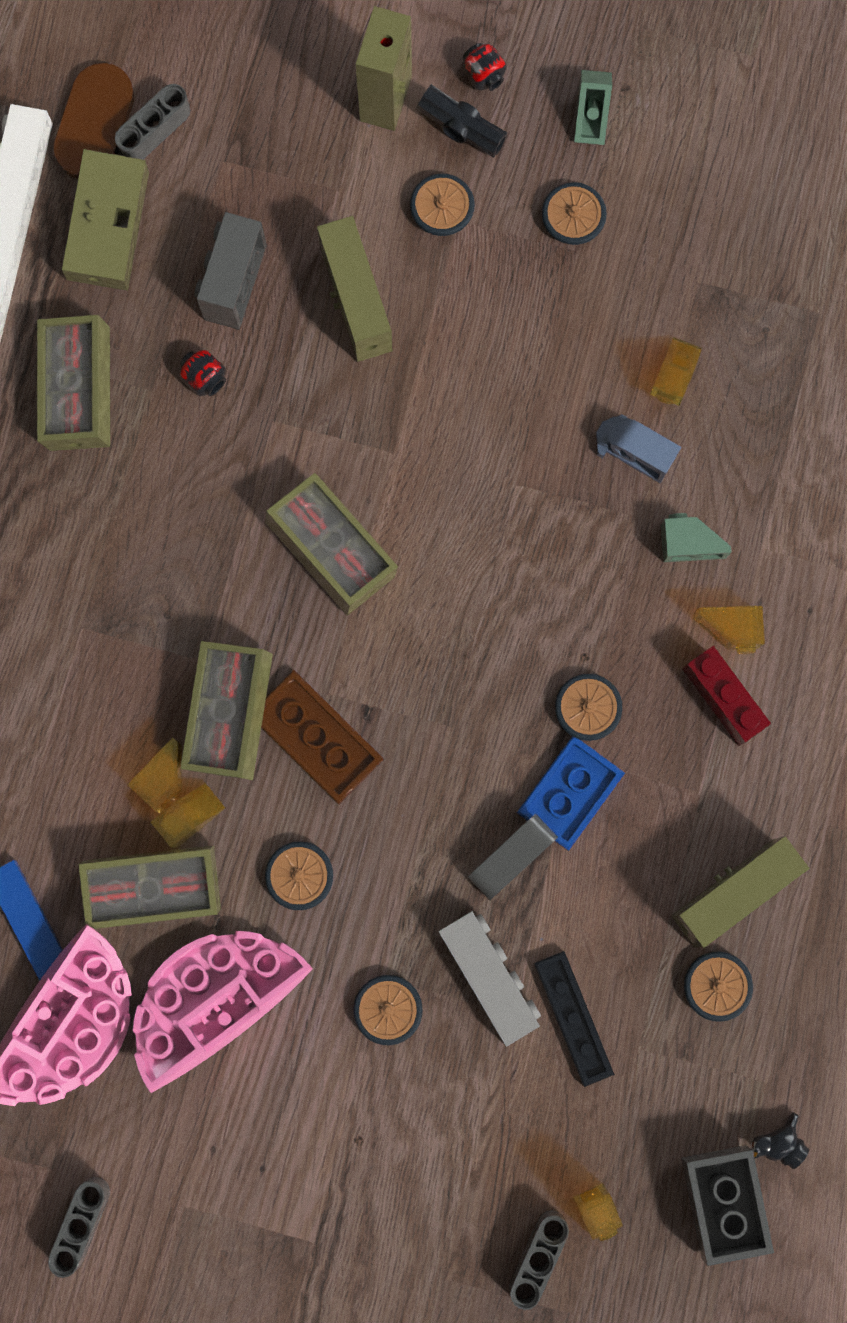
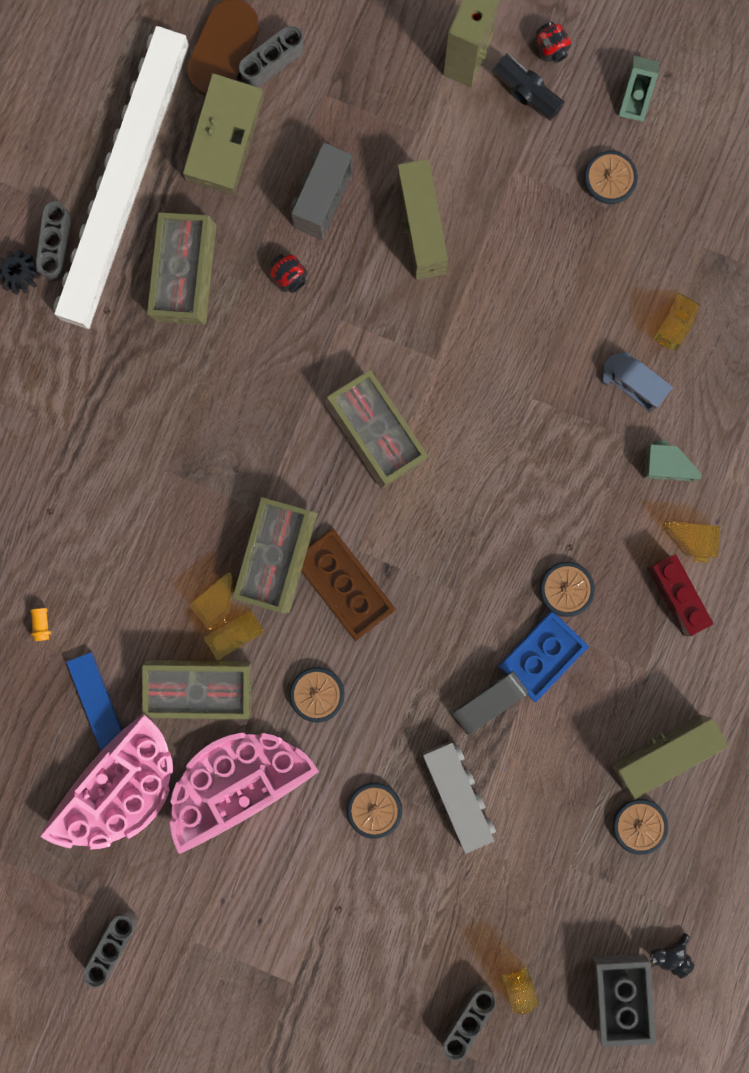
camera: 10 degrees right, 5 degrees up
(442, 204) = (502, 156): medium nougat wheel -> none
(574, 1019) = (521, 836): black tile -> none

